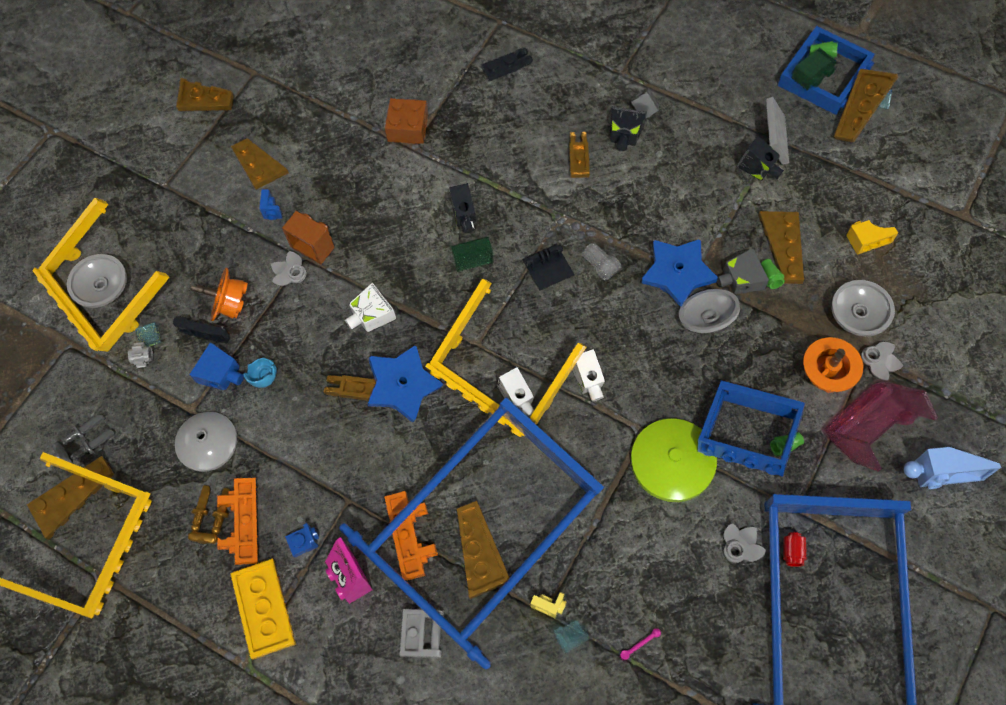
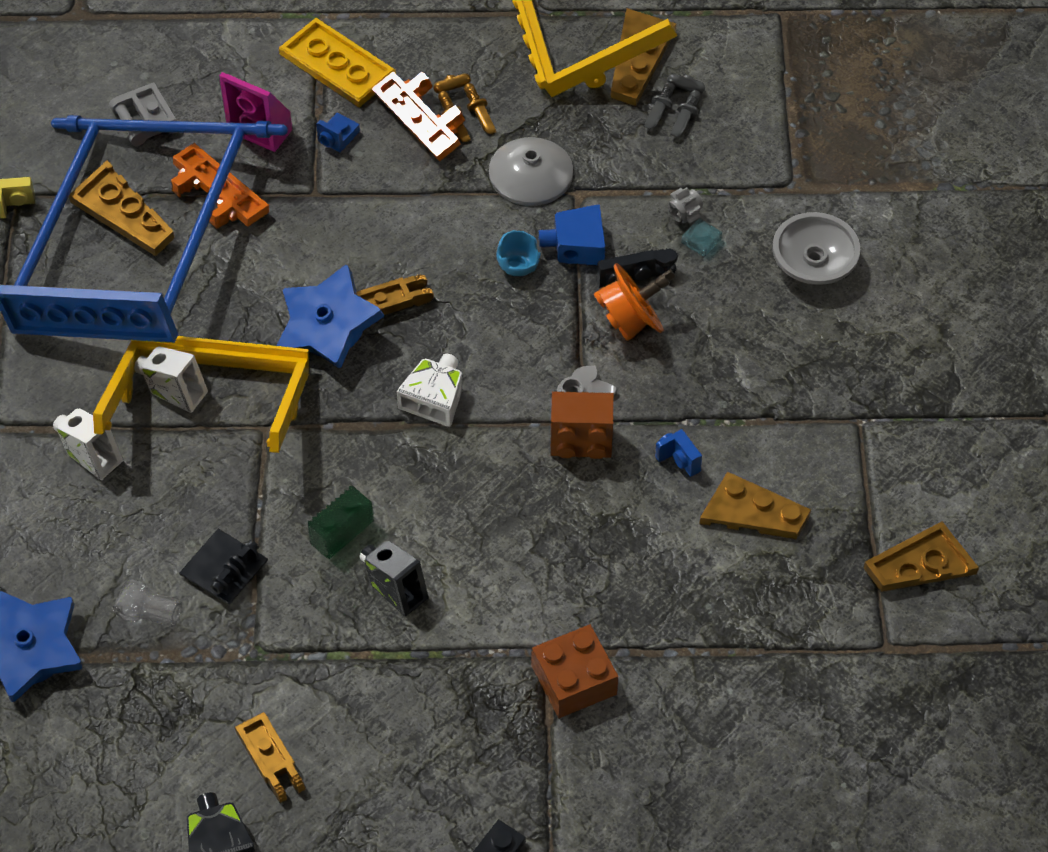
camera: 145 degrees right, 10 degrees down
(67, 251) = (793, 203): yellow piece -> none

